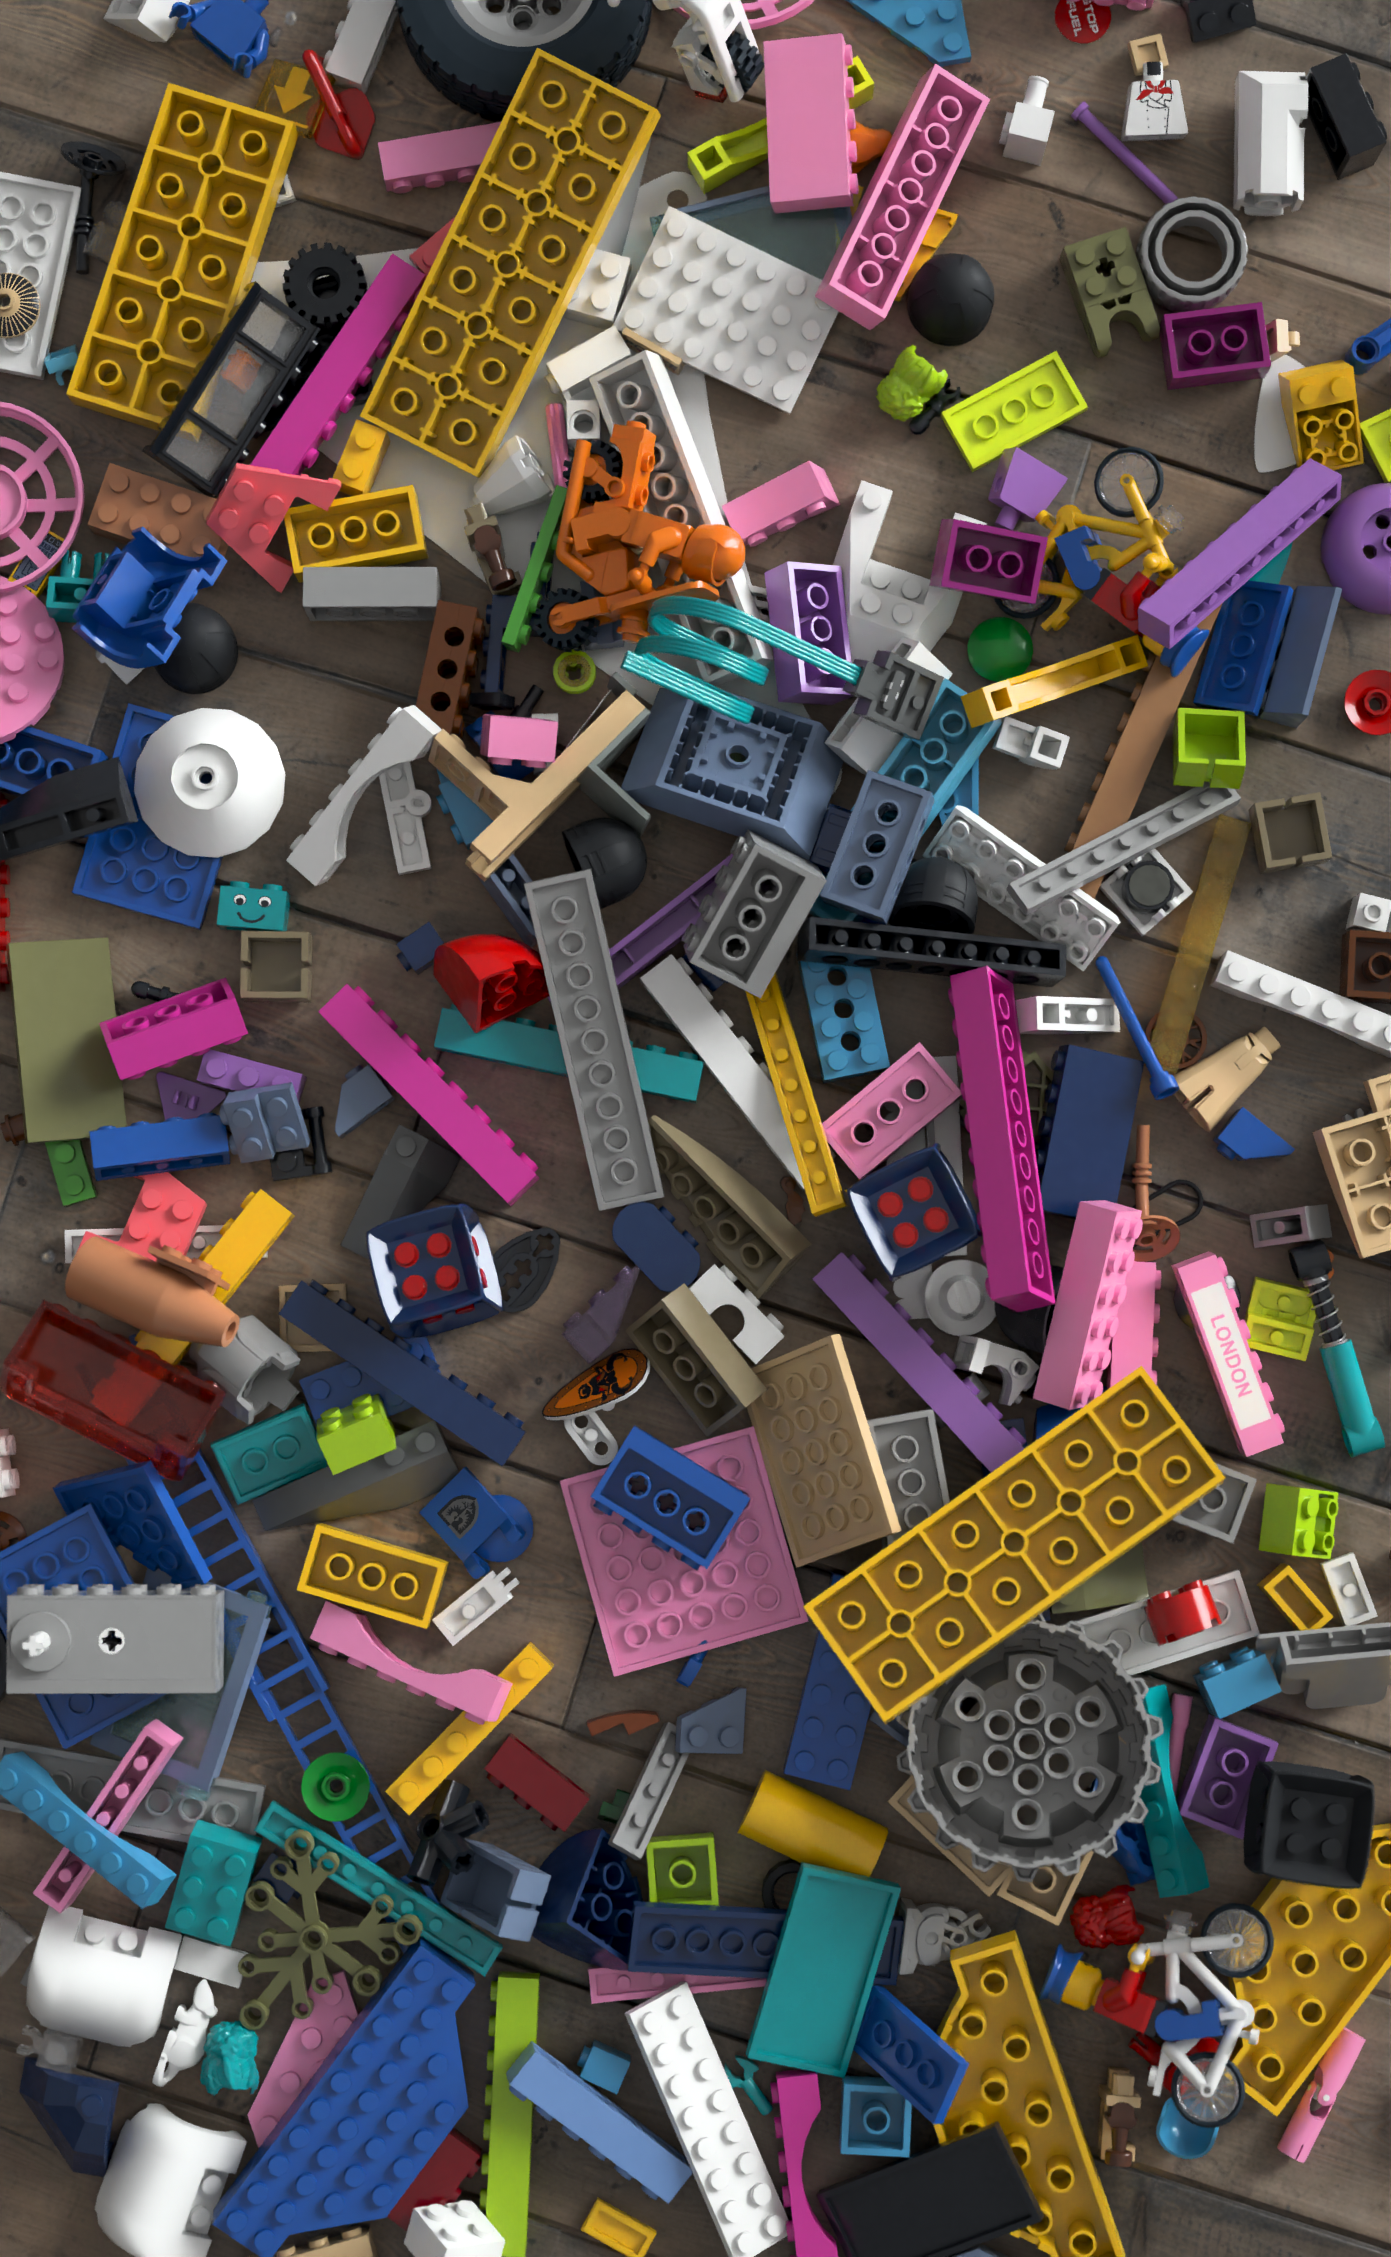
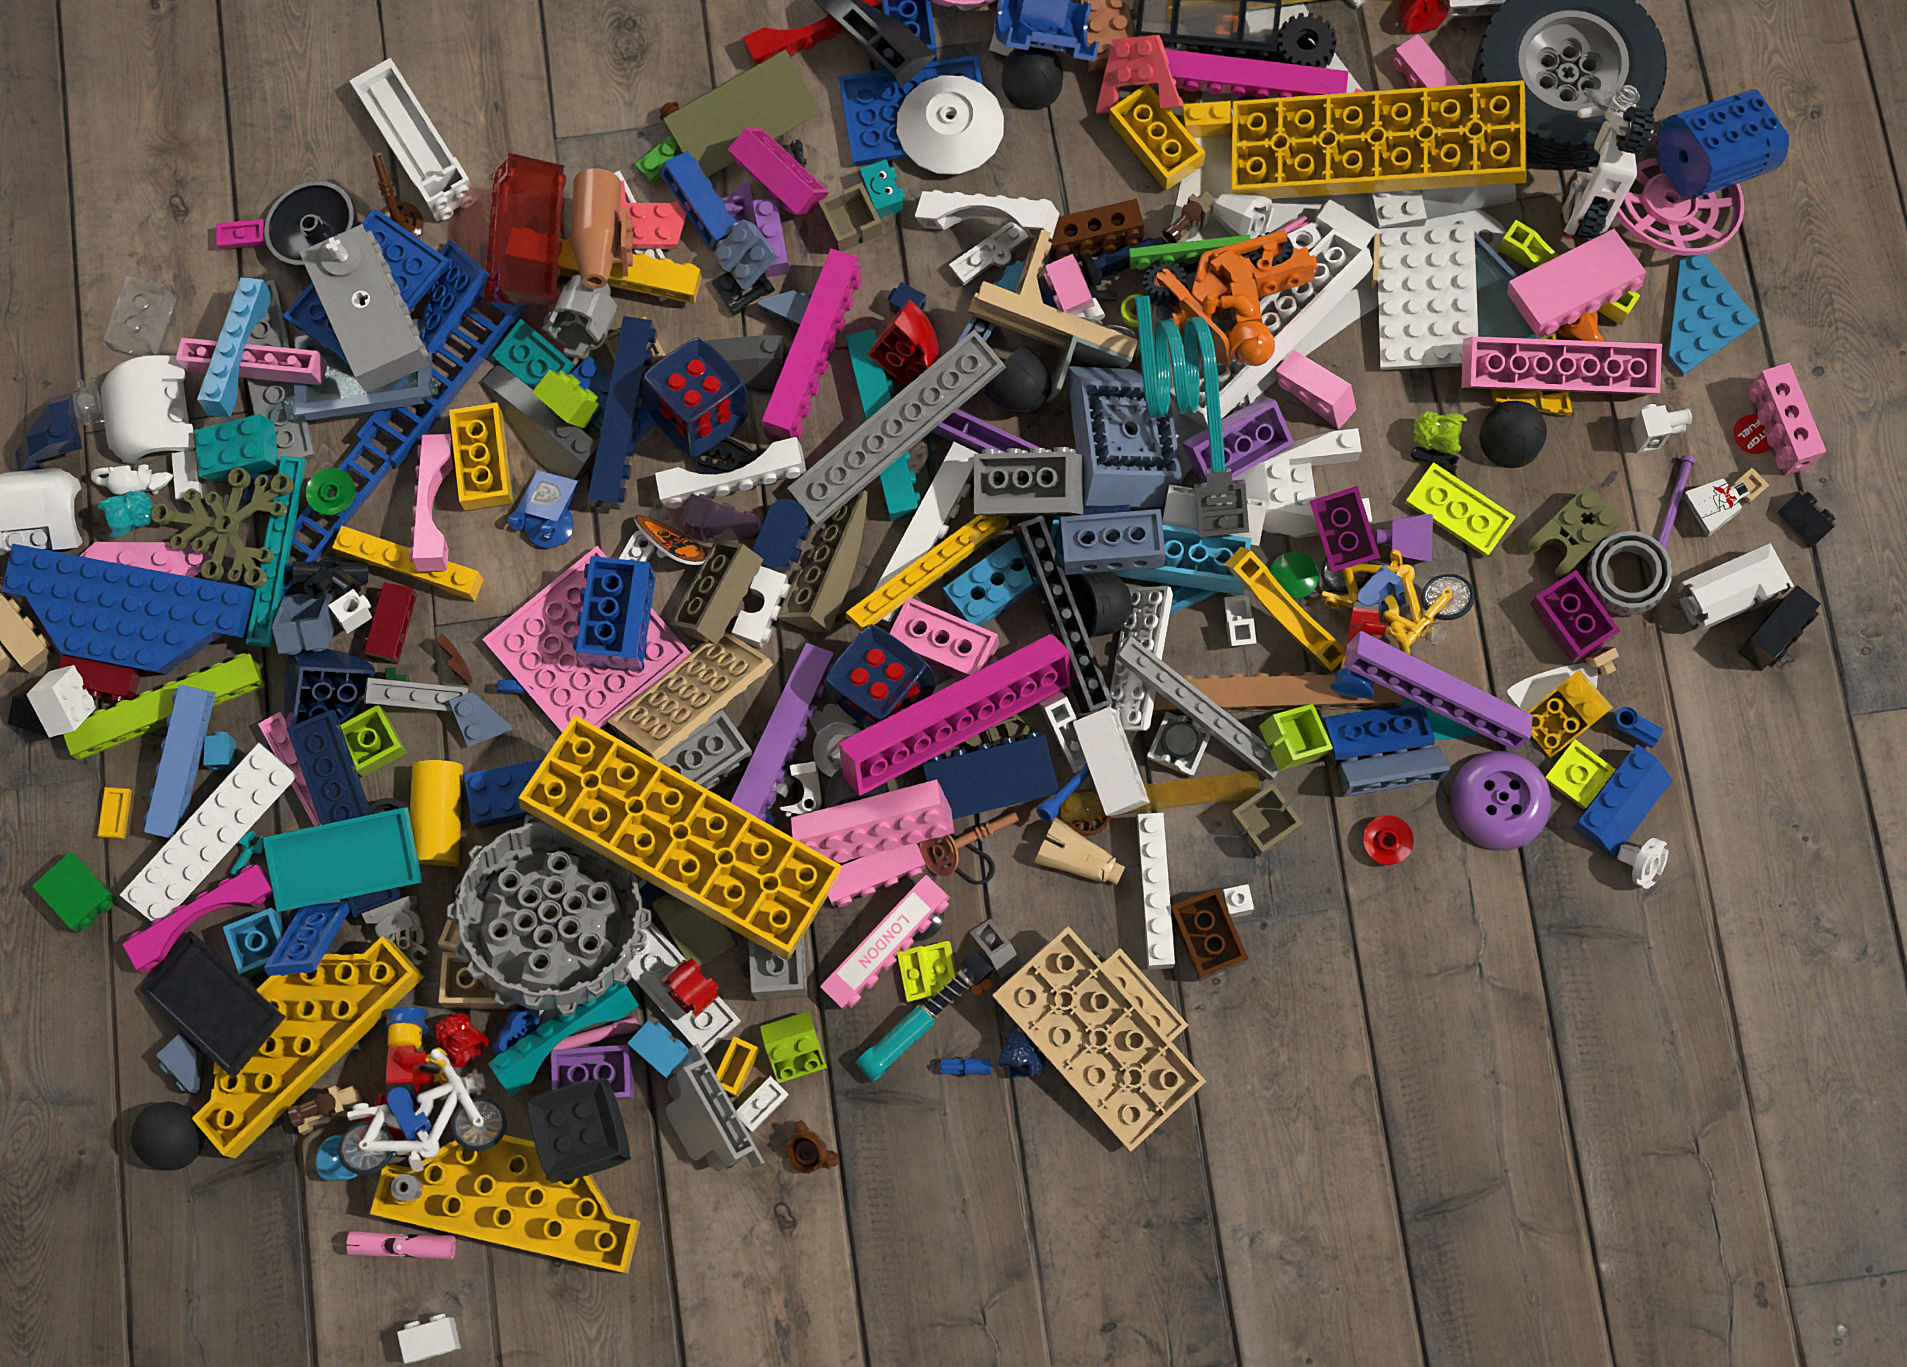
camera: 70 degrees right, 10 degrees down
(371, 593) = (1121, 160): light grey brick -> none
(475, 1606) = (490, 531): white hinge -> none
(496, 1837) = (351, 620): none -> white brick
(563, 1203) = (779, 461): none -> white arch
(1139, 982) = (1111, 762): none -> white brick
(1249, 1139) = (1041, 891): blue slope -> none
(1269, 2050) = (414, 1190): none -> light grey brick

